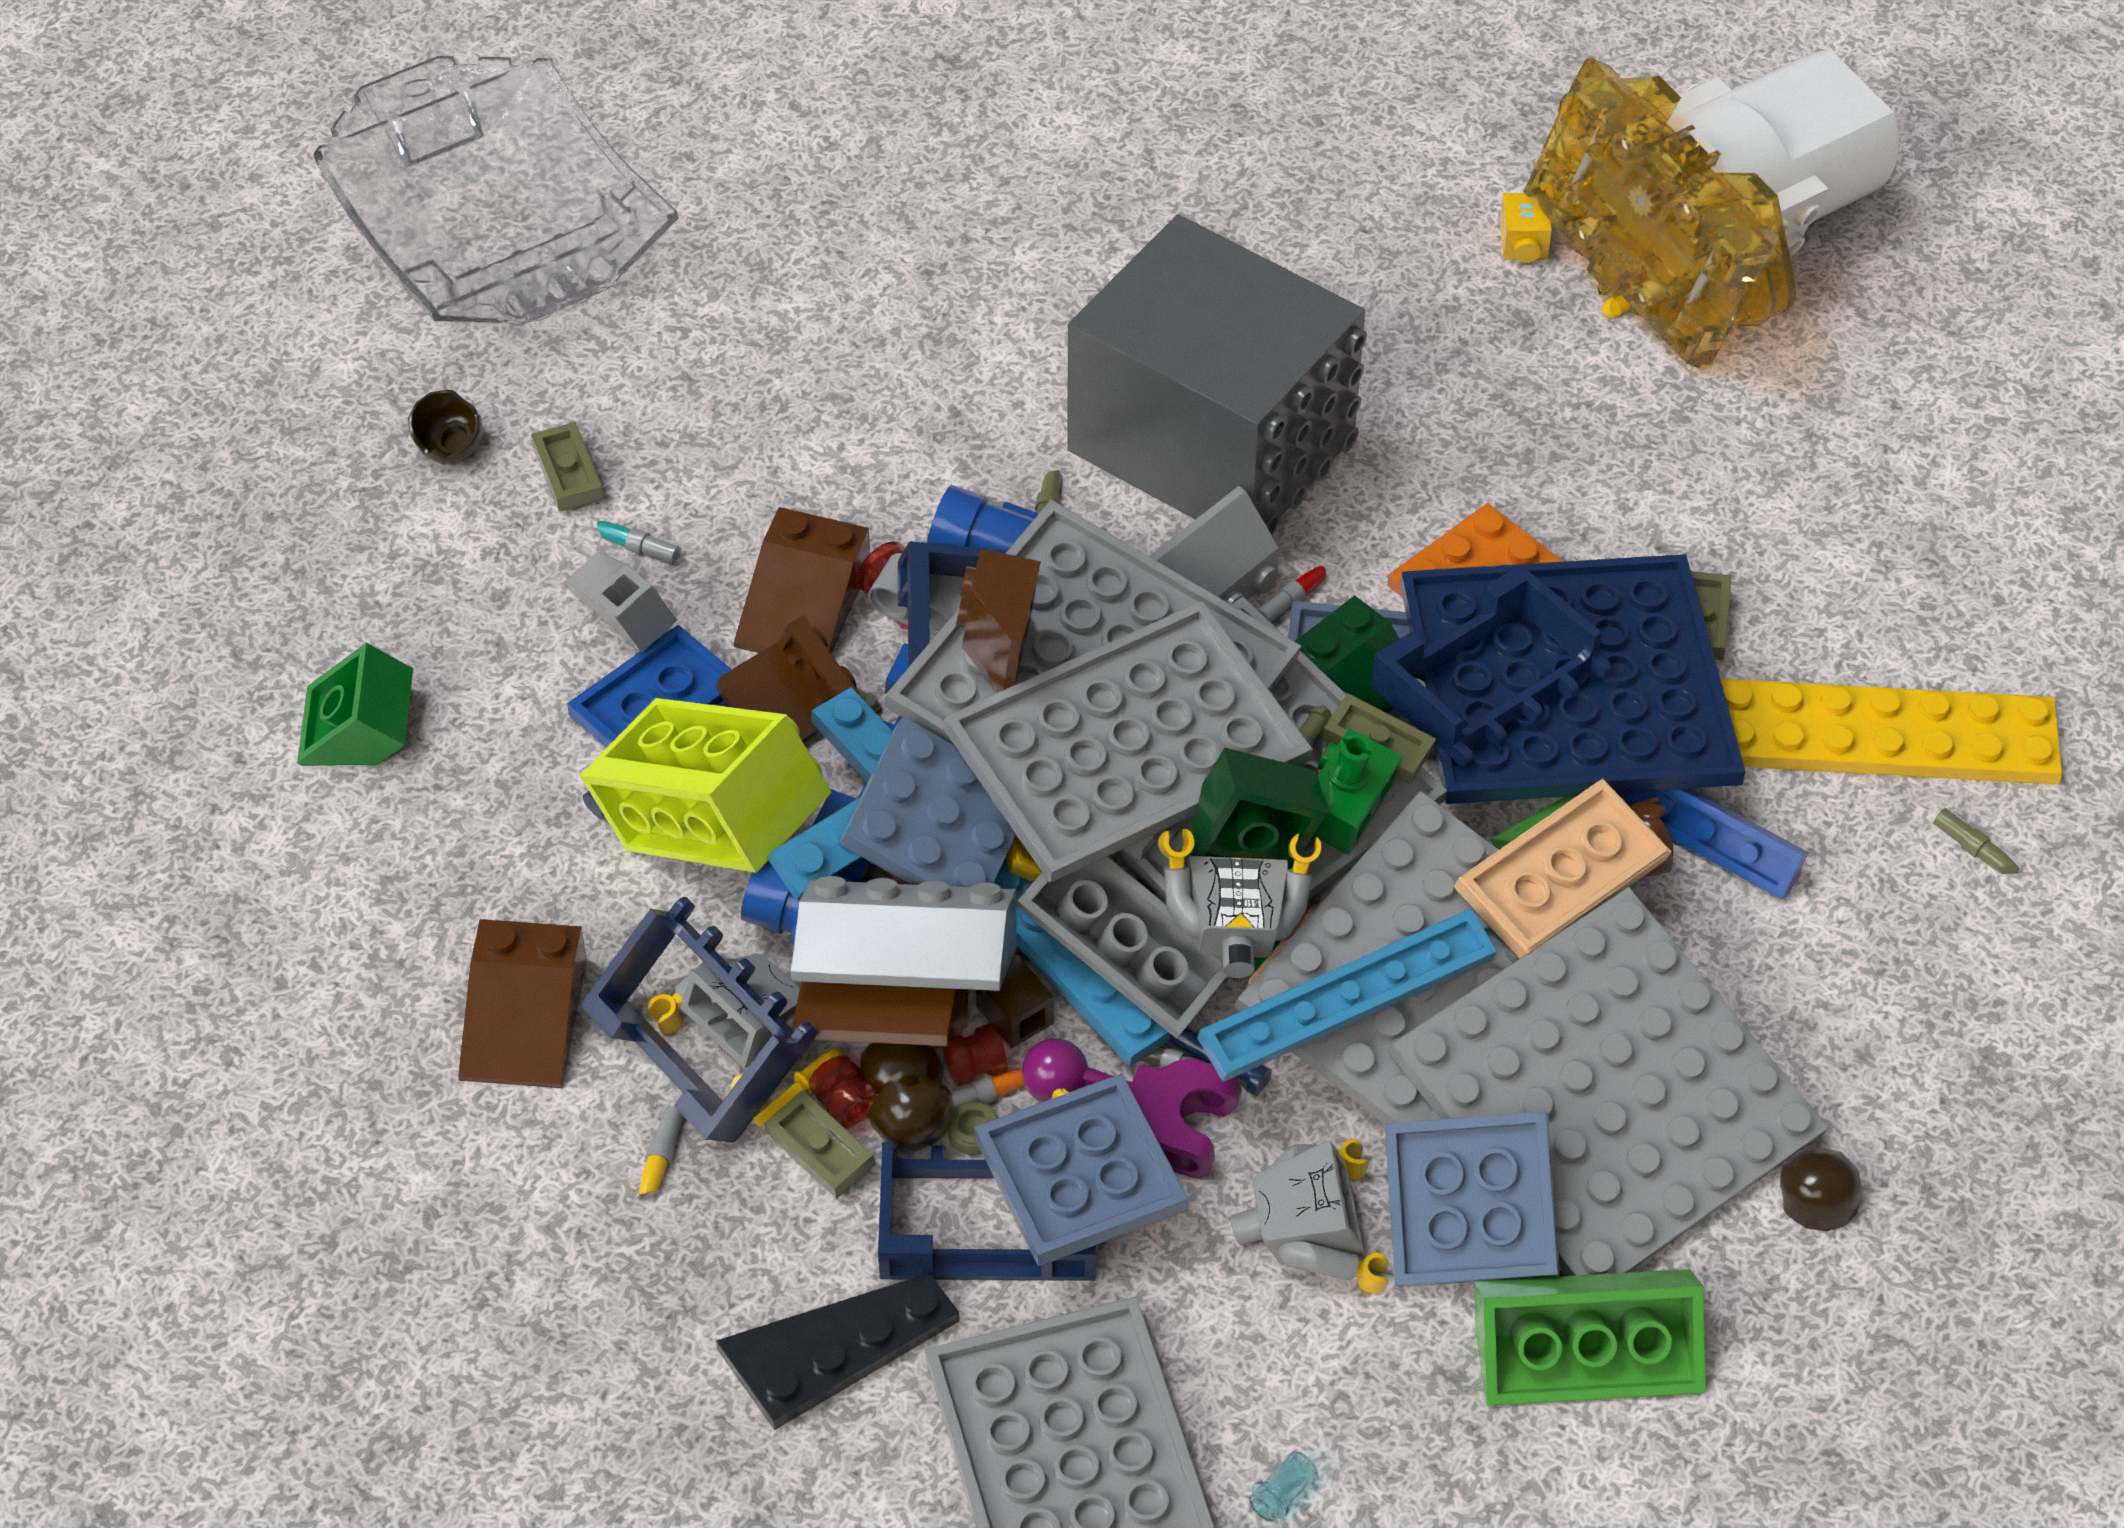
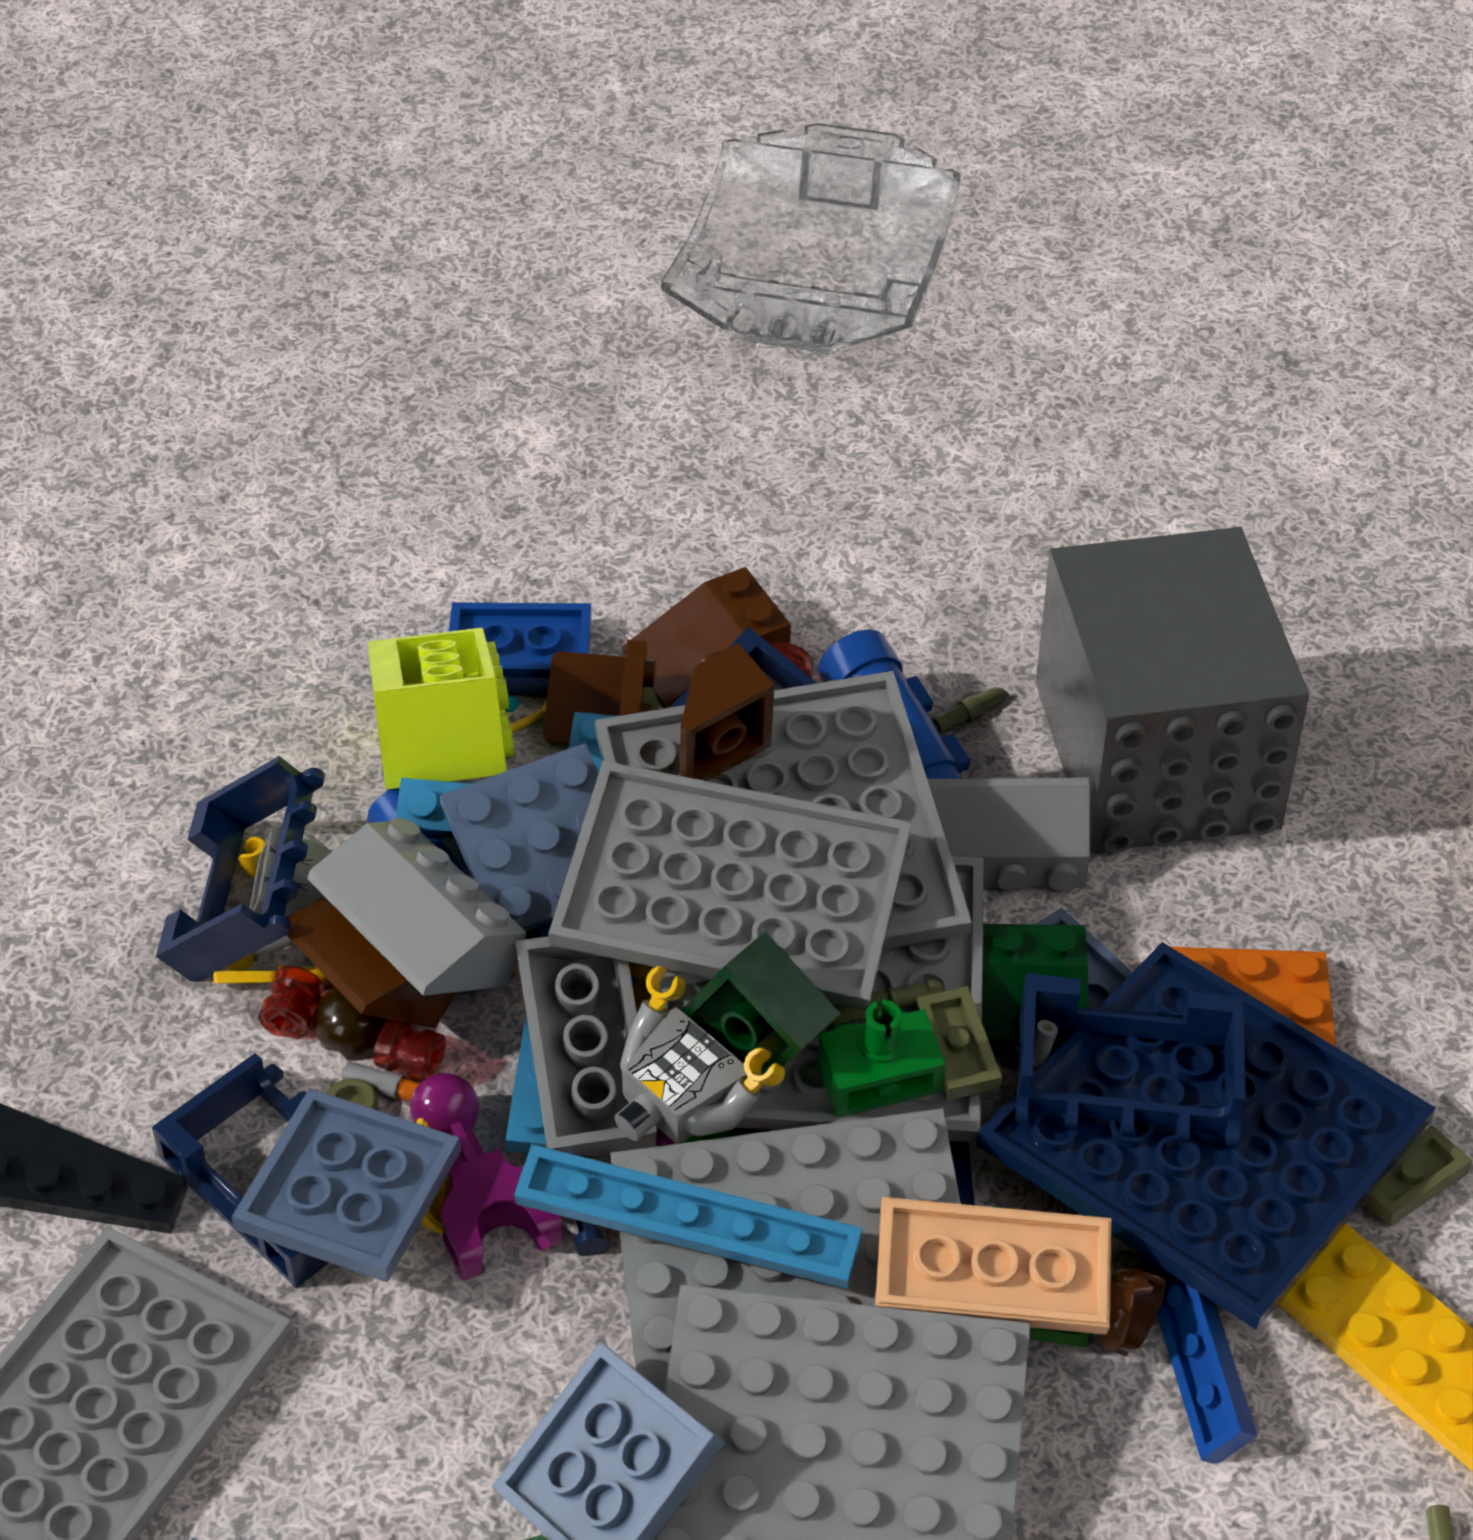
camera: 45 degrees right, 5 degrees down
(357, 711) = (321, 515): green slope -> none
(445, 427) = (604, 372): dark brown hair -> none
(521, 1003) = (167, 771): reddish brown slope -> none
(567, 466) = (657, 453): olive plate -> none
(622, 599) = (563, 560): light grey slope -> none
(639, 541) = (646, 536): light grey piece -> none
(661, 1150) = (130, 949): piece -> none
(819, 1144) = (230, 1024): olive plate -> none
(912, 1114) = (307, 1054): dark brown hair -> none
(1020, 1006) = (484, 1035): dark brown brick -> none
(1292, 591) = (1077, 906): light grey piece -> none
(1311, 1214) = (487, 1369): light grey torso -> none

